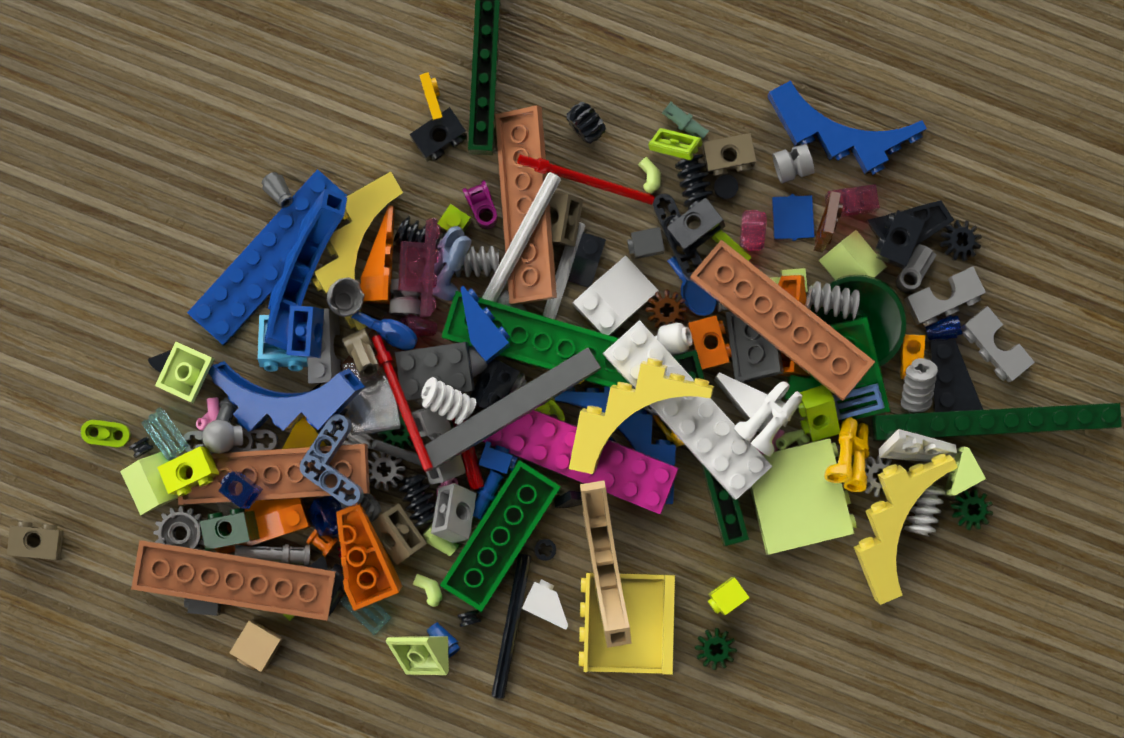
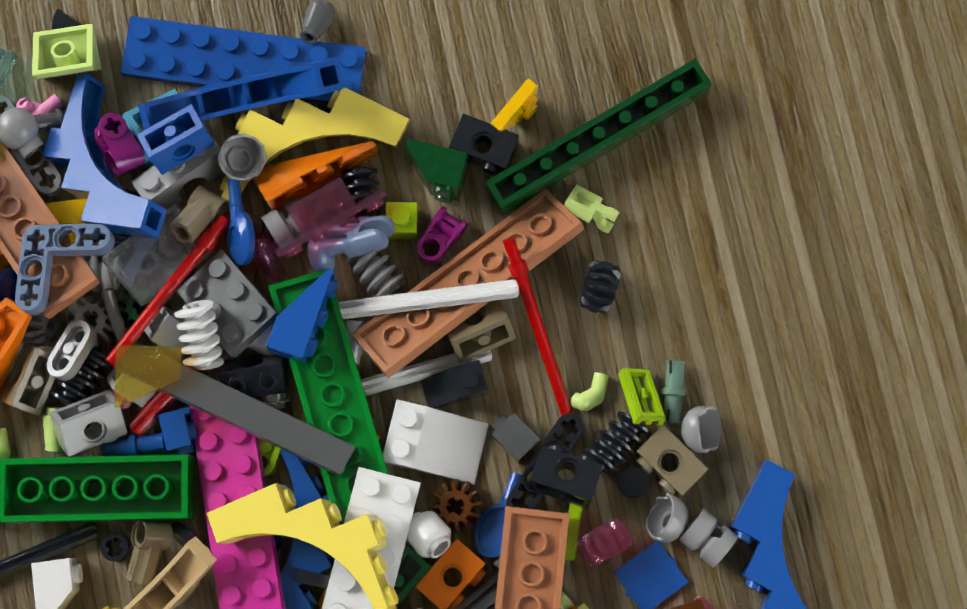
camera: 65 degrees right, 5 degrees down
(280, 375) = (119, 149): none -> magenta piece
(398, 493) = (71, 350): none -> light grey plate
(437, 175) = (439, 168): none -> dark green slope
(449, 450) = (144, 370): none -> clear yellow wing
(526, 94) = (588, 206): none -> yellowish green plate
(557, 524) = (148, 541): none -> dark tan piece
(652, 431) = (310, 577): none -> black tile
(721, 120) = (701, 429): none -> light grey hair
(764, 181) = (667, 519): none -> light grey hair

